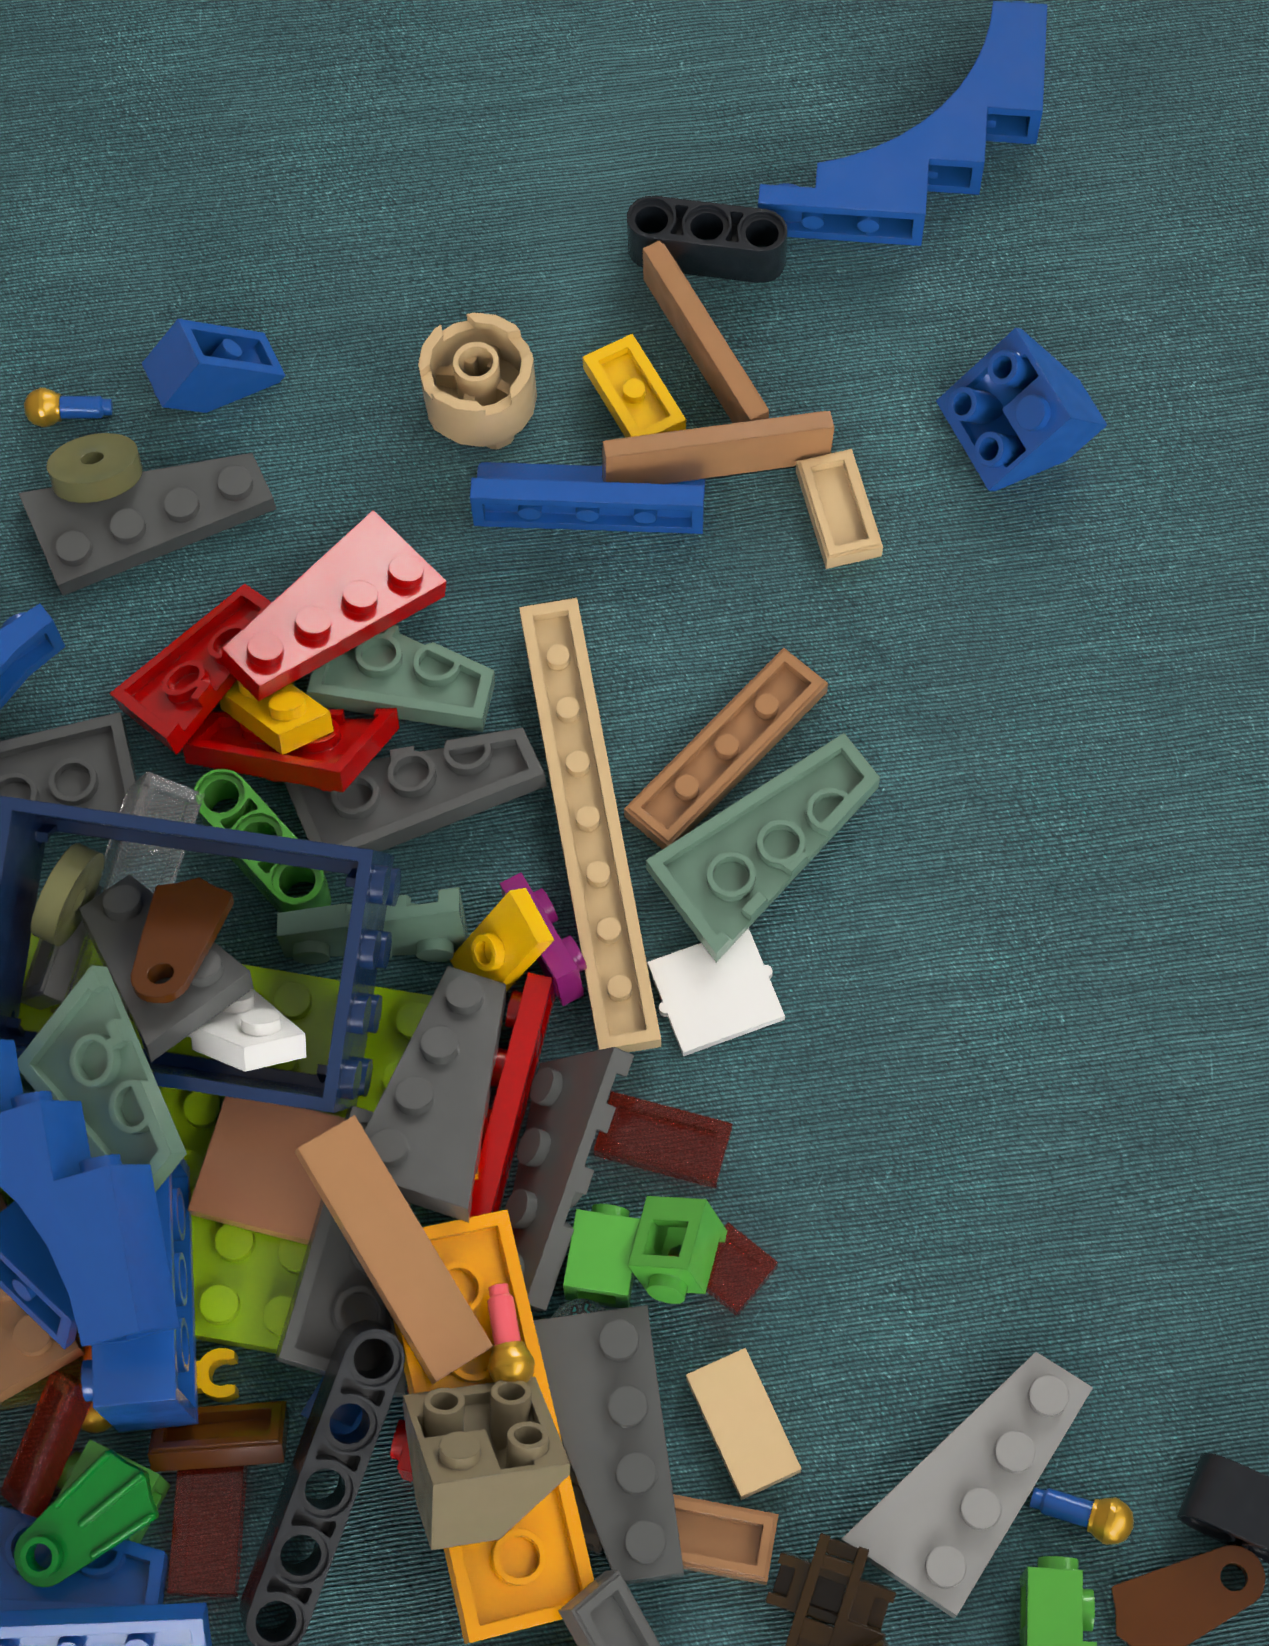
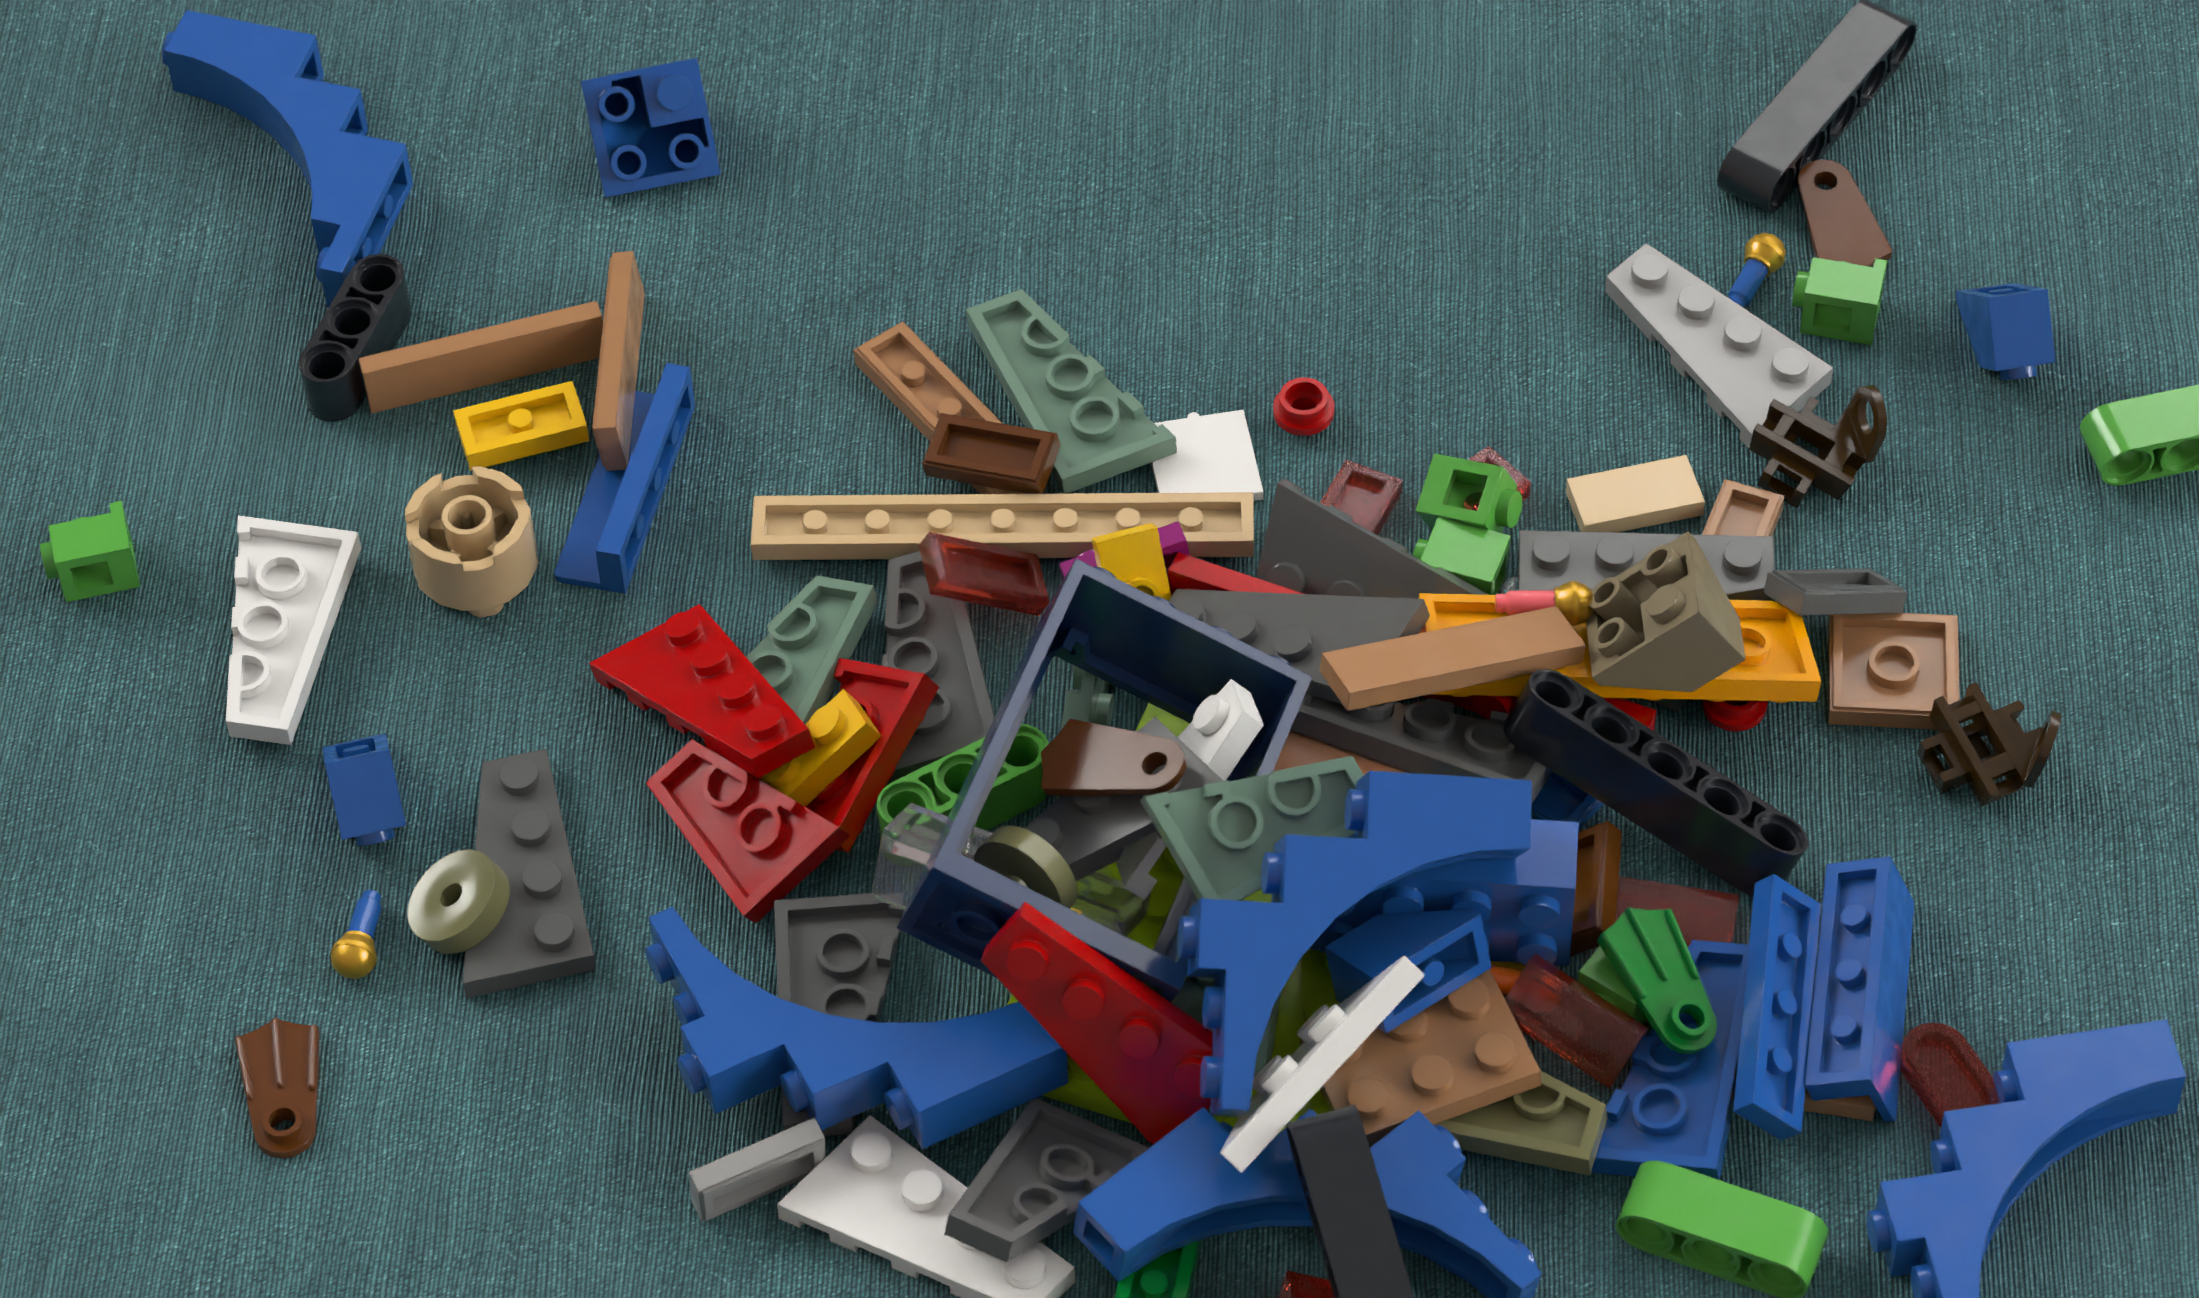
camera: 80 degrees left, 15 degrees down
(395, 267) = (283, 615): none -> white wing
(429, 110) = (91, 555): none -> bright green brick
(513, 811) = (983, 574): none -> clear red tile
(662, 790) = (991, 454): none -> reddish brown tile
(798, 1055) = (1303, 407): none -> red plate
(839, 508) = (705, 289): tan tile -> none

